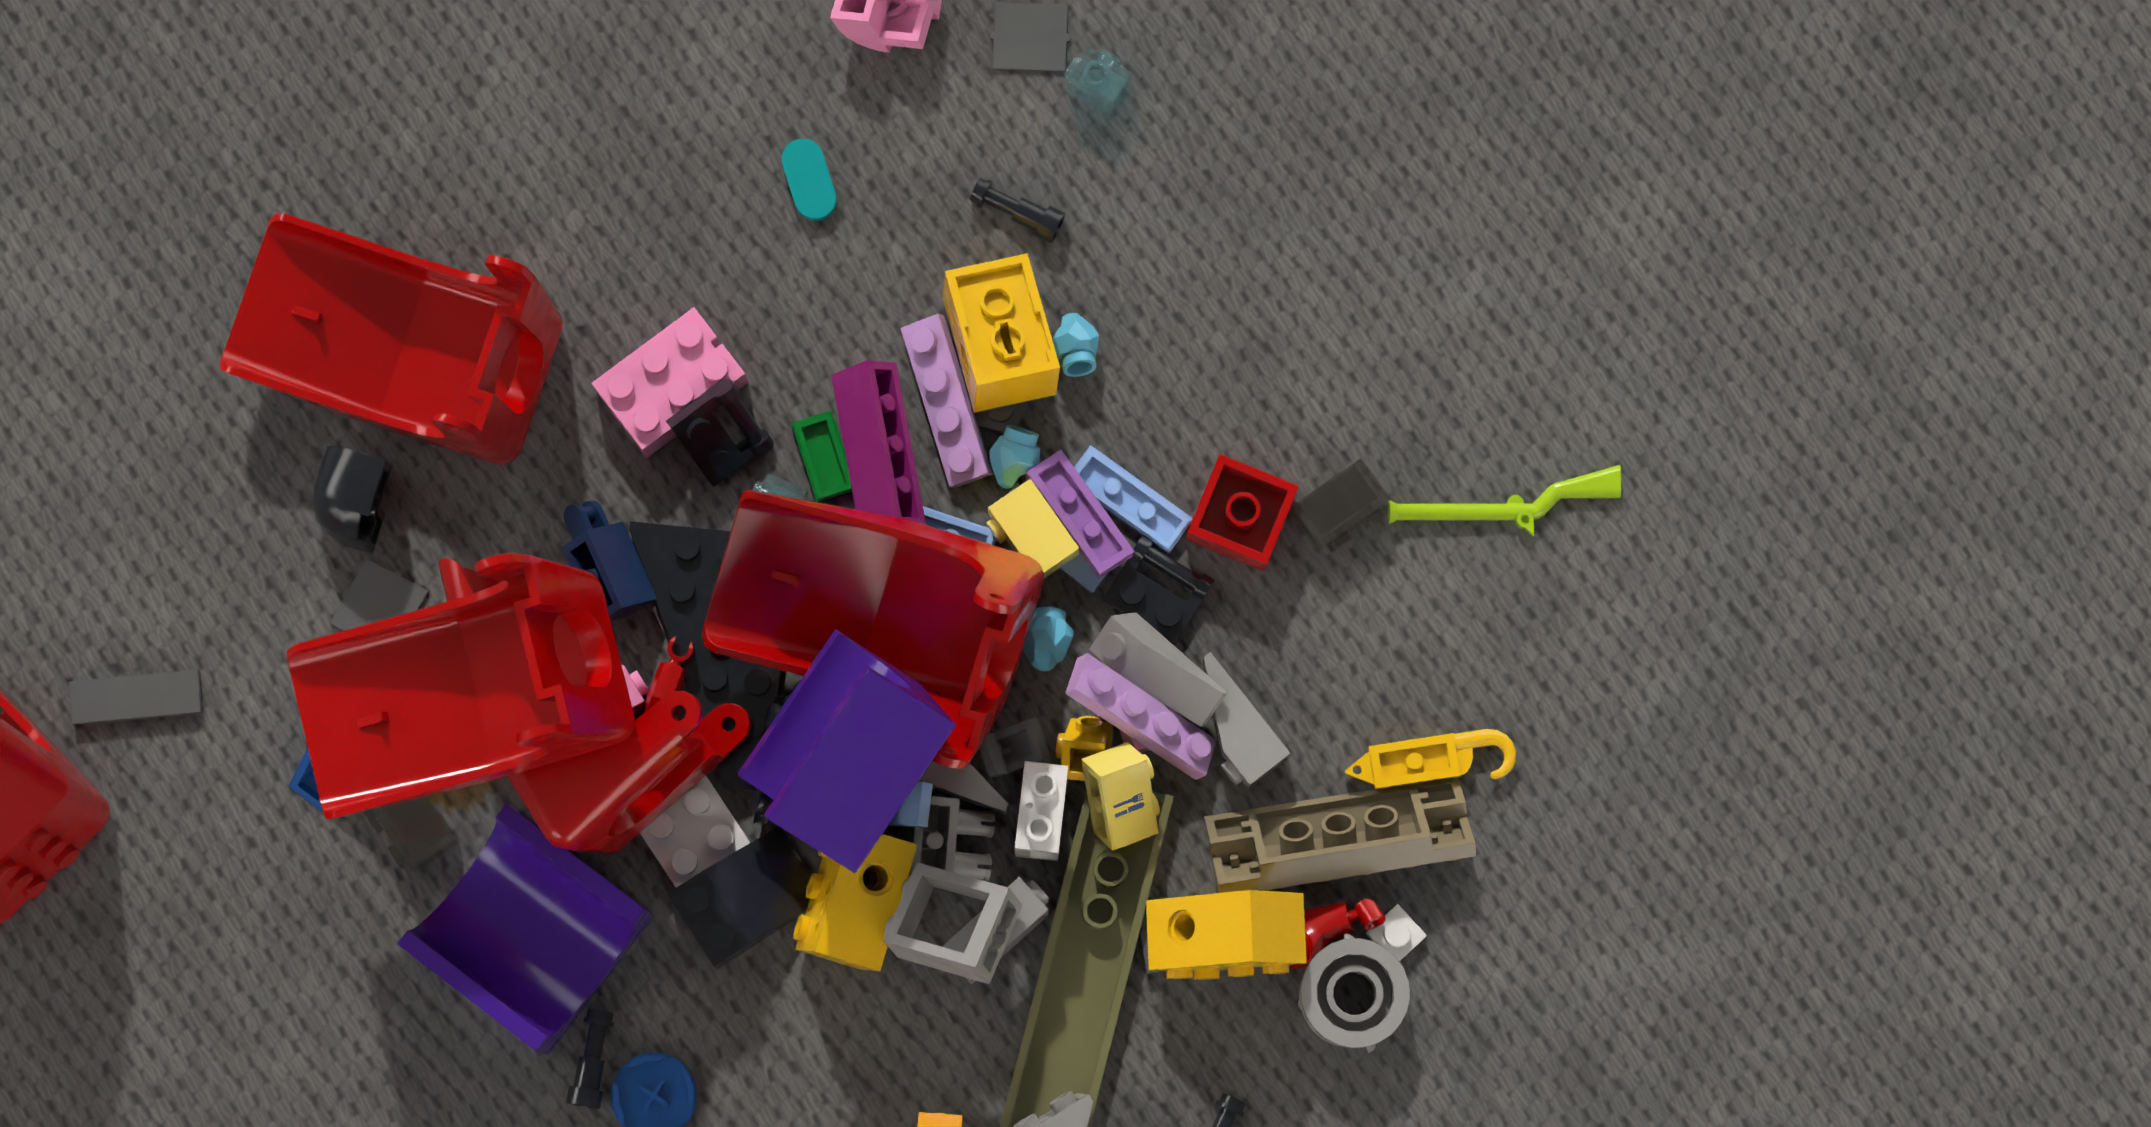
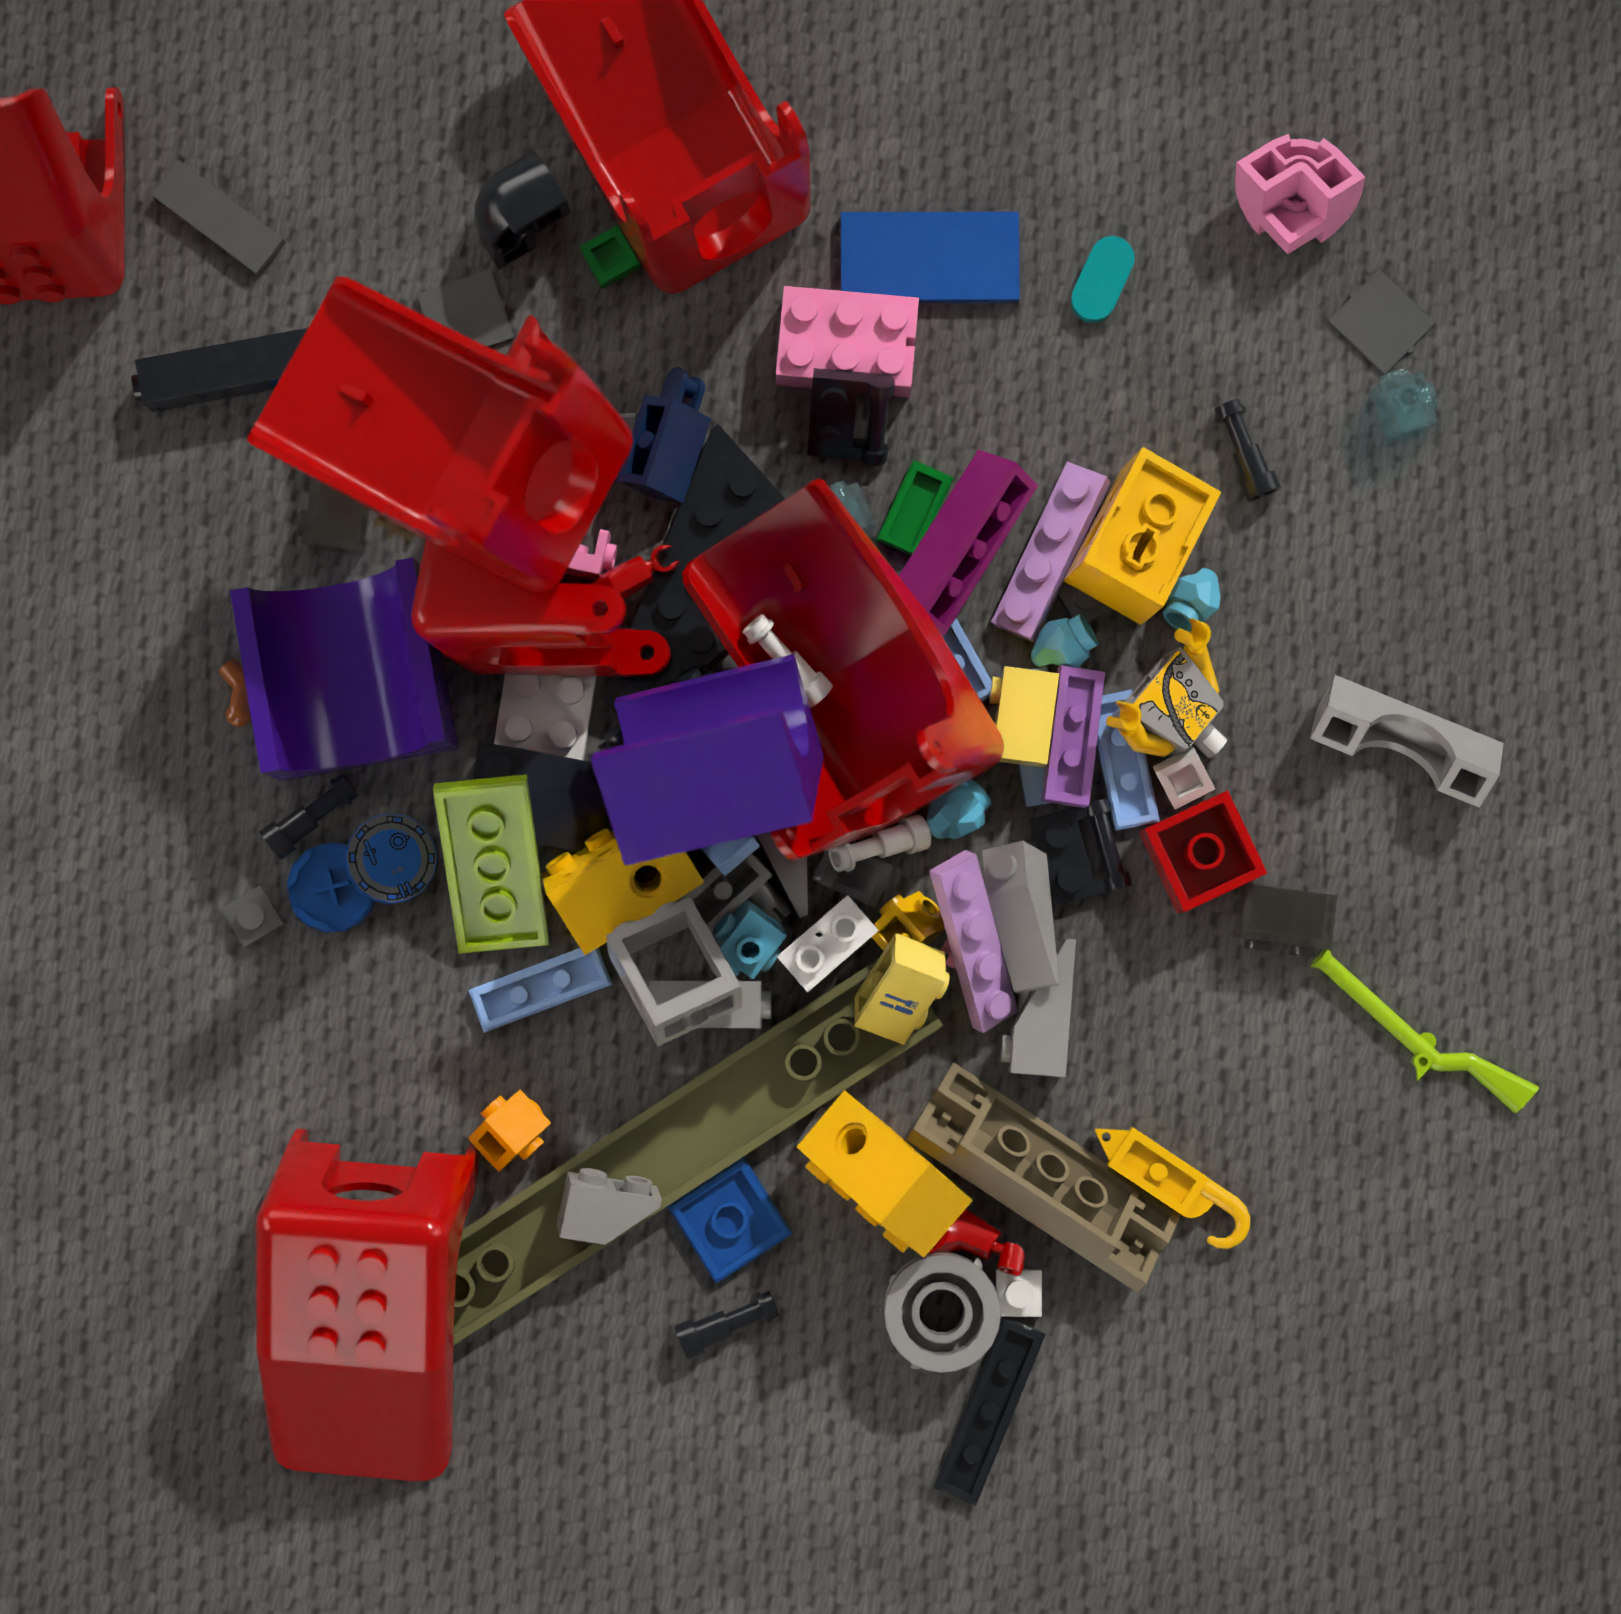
camera: 45 degrees right, 5 degrees up
(244, 795) = (214, 371): none -> black brick
(445, 473) = (609, 257): none -> green plate
(466, 1017) = (238, 711): none -> dark orange arm
(673, 269) = (932, 255): none -> blue tile
(678, 1036) = (390, 858): none -> tile
(755, 971) = (491, 863): none -> lime tile
(795, 637) = (815, 684): none -> white piece
(866, 1030) = (539, 988): none -> light blue tile
(984, 855) = (749, 939): none -> medium azure brick
(1029, 685) = (909, 836): none -> white piece
(1127, 426) = (1174, 701): none -> torso
(1149, 1069) = (729, 1219): none -> blue tile
(1182, 473) = (1183, 777): none -> white plate
(1354, 291) = (1455, 757): none -> light grey arch
(1451, 1035) = (989, 1410): none -> black tile

